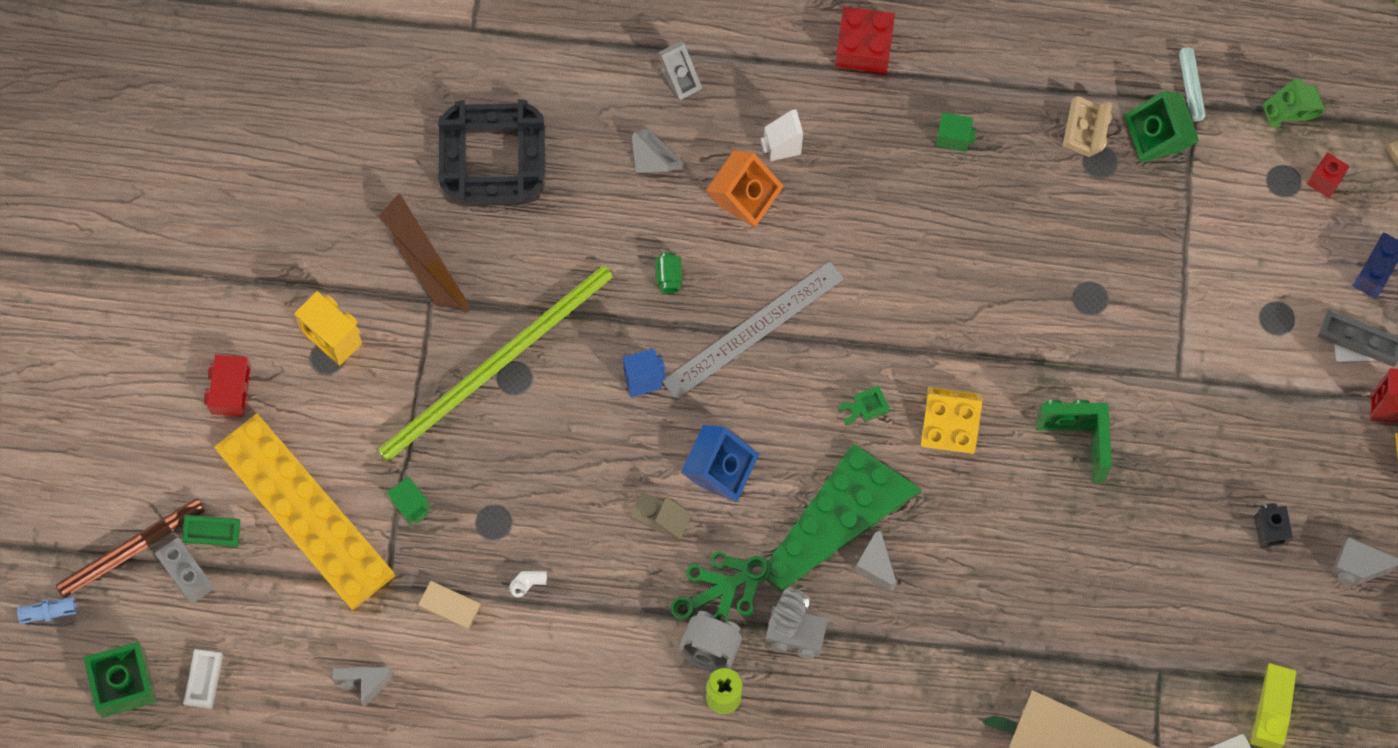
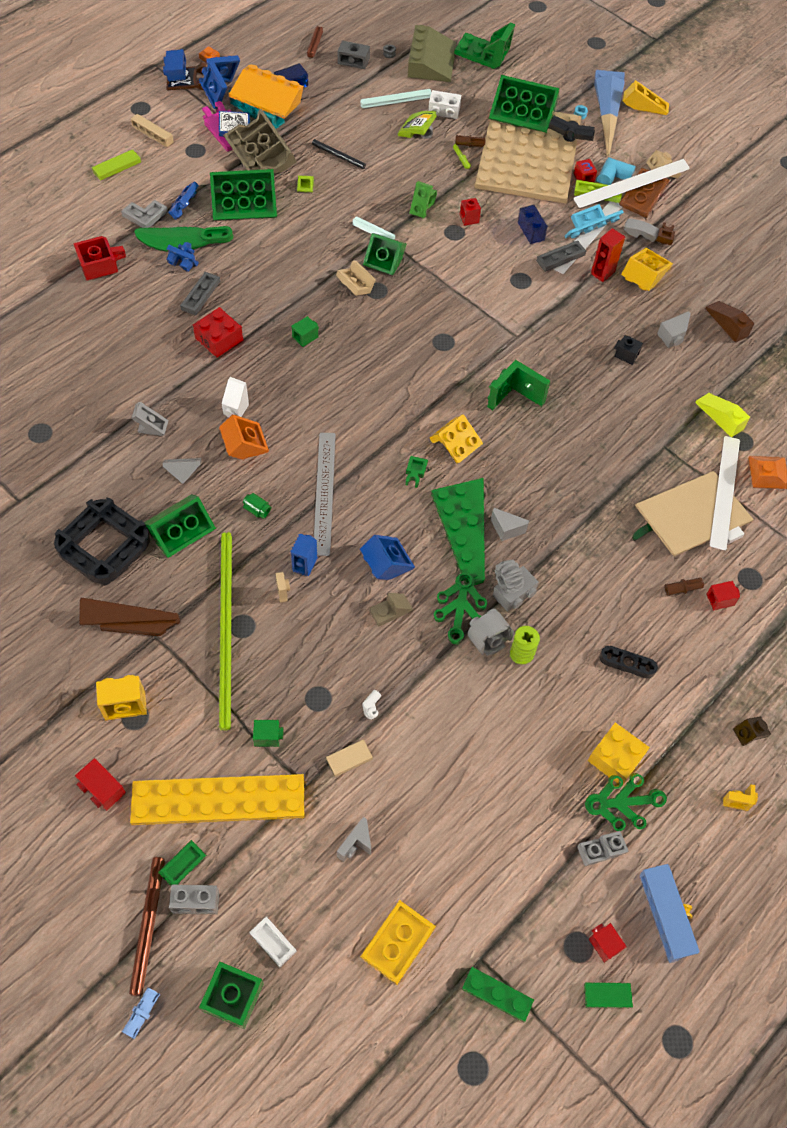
camera: 55 degrees left, 10 degrees down
(576, 214) = (180, 525): none -> green slope
(583, 381) = (282, 587): none -> tan plate

